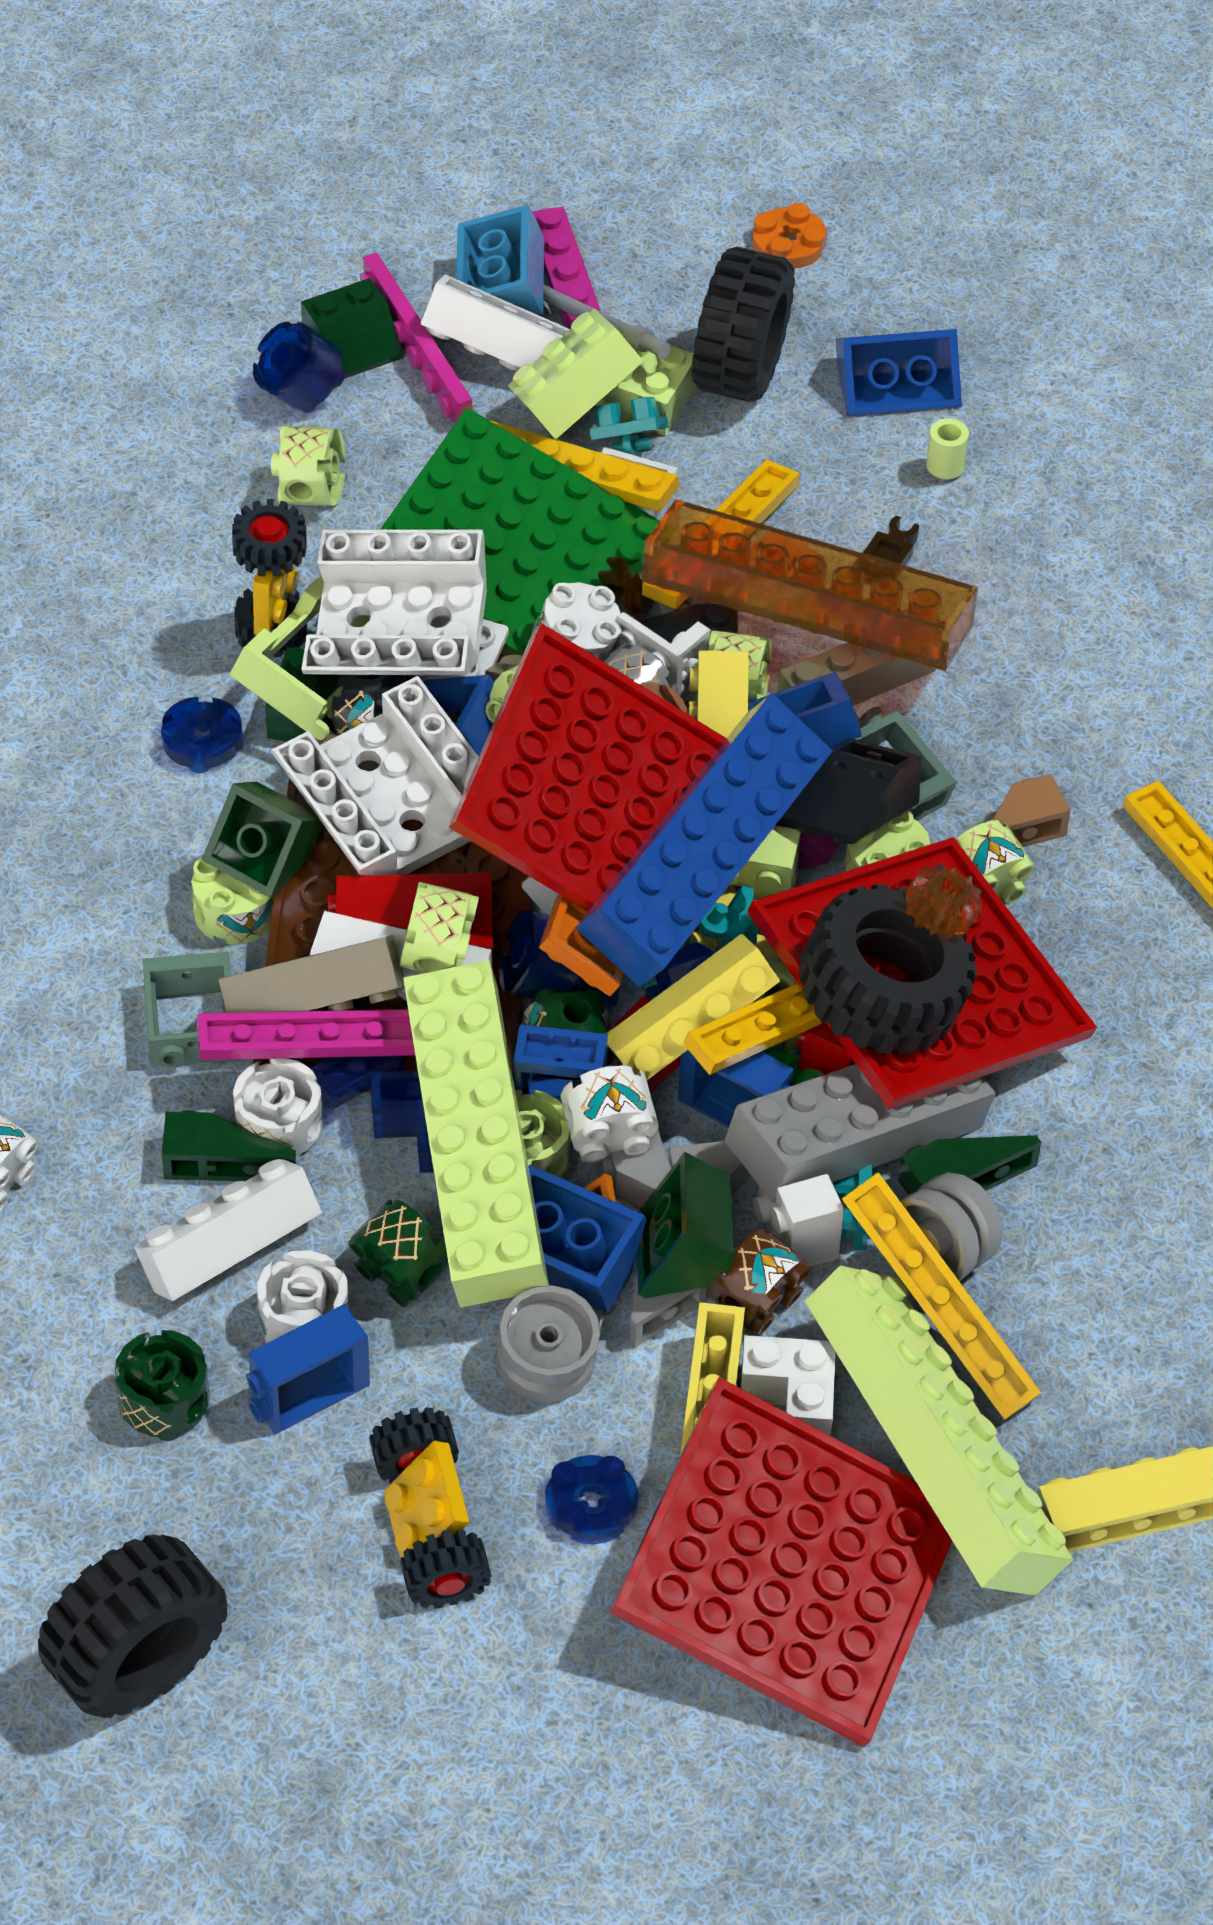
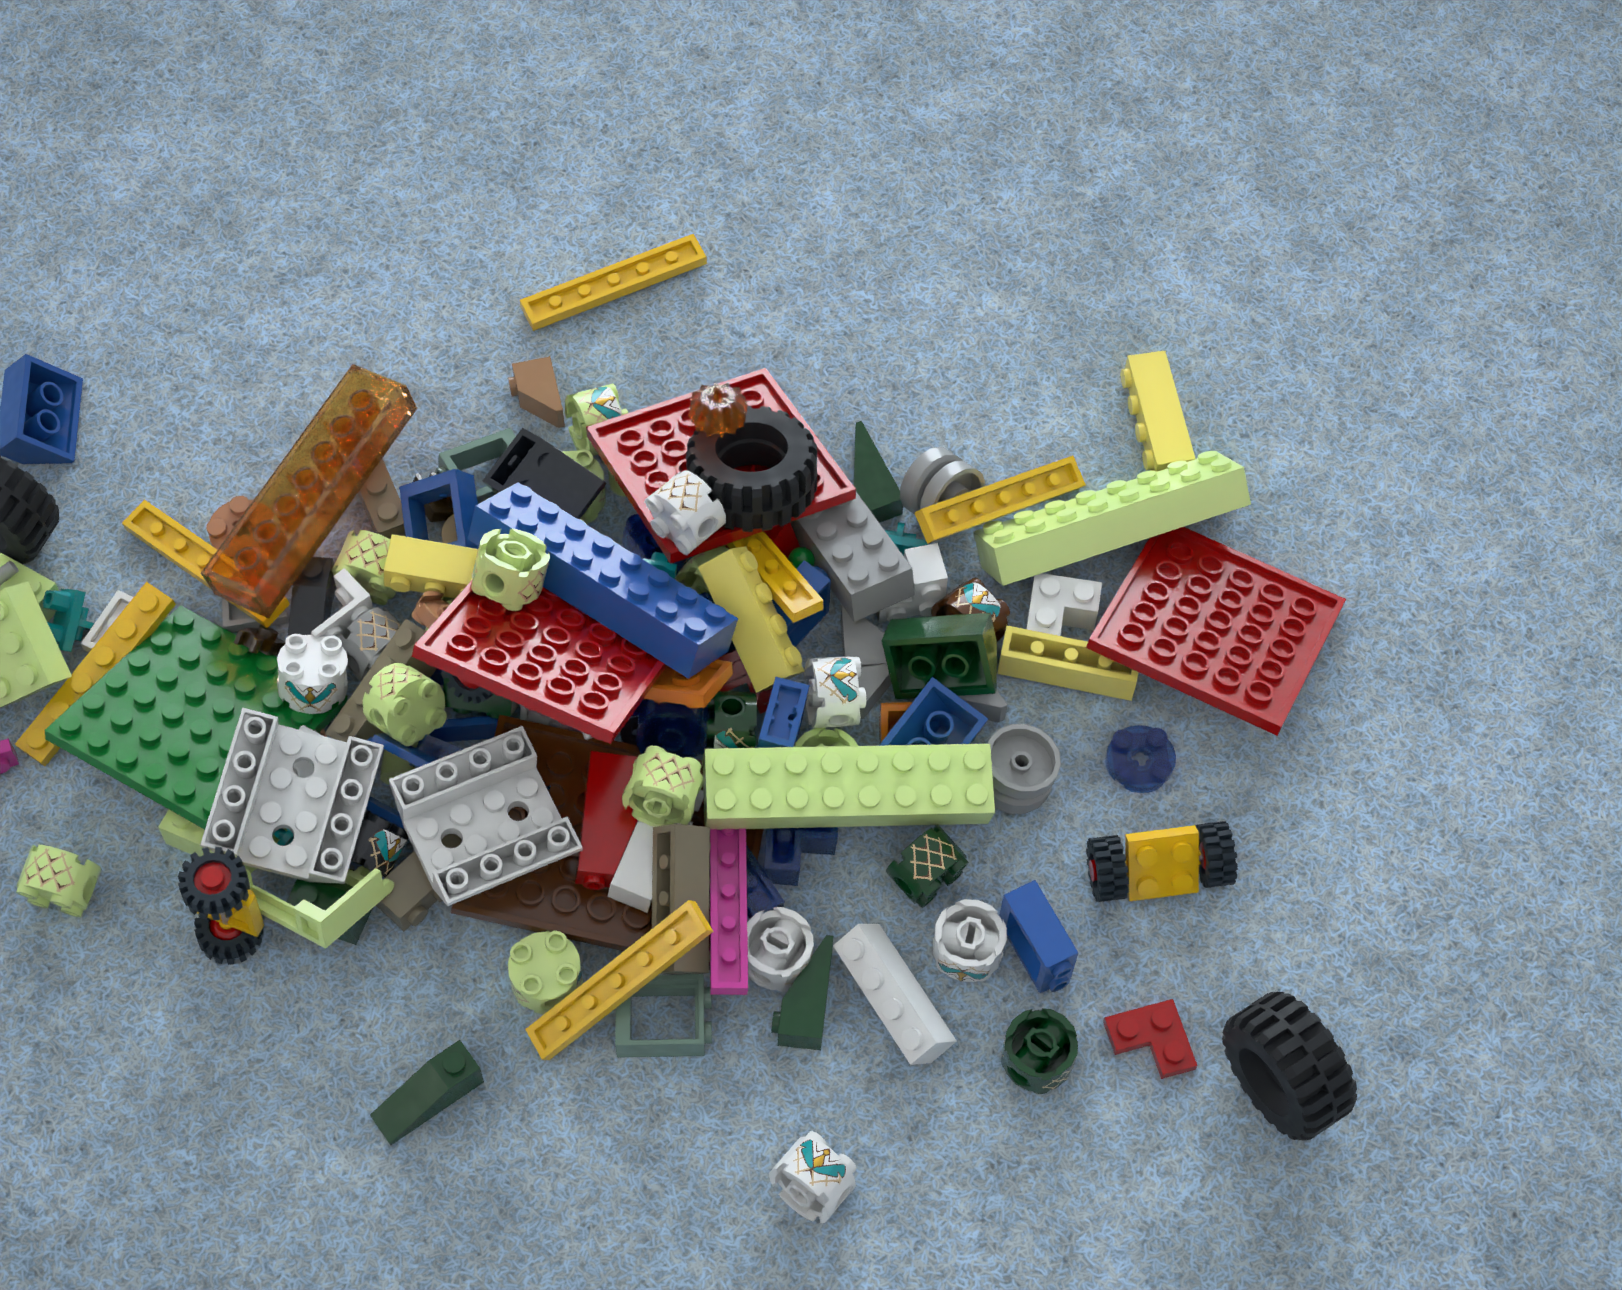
camera: 85 degrees left, 10 degrees up
(92, 815) = (428, 1092): none -> dark green slope
(207, 751) = (348, 1014): clear blue plate -> none
(211, 938) = (619, 980): none -> yellow plate
(211, 1519) = (1155, 1027): none -> red plate
(262, 837) = (520, 929): dark green slope -> none
(685, 727) = (510, 568): none -> yellowish green brick
(797, 892) = (685, 511): none -> white brick
(896, 545) = (242, 449): dark brown plate -> none
(947, 448) = (145, 387): yellowish green brick -> none

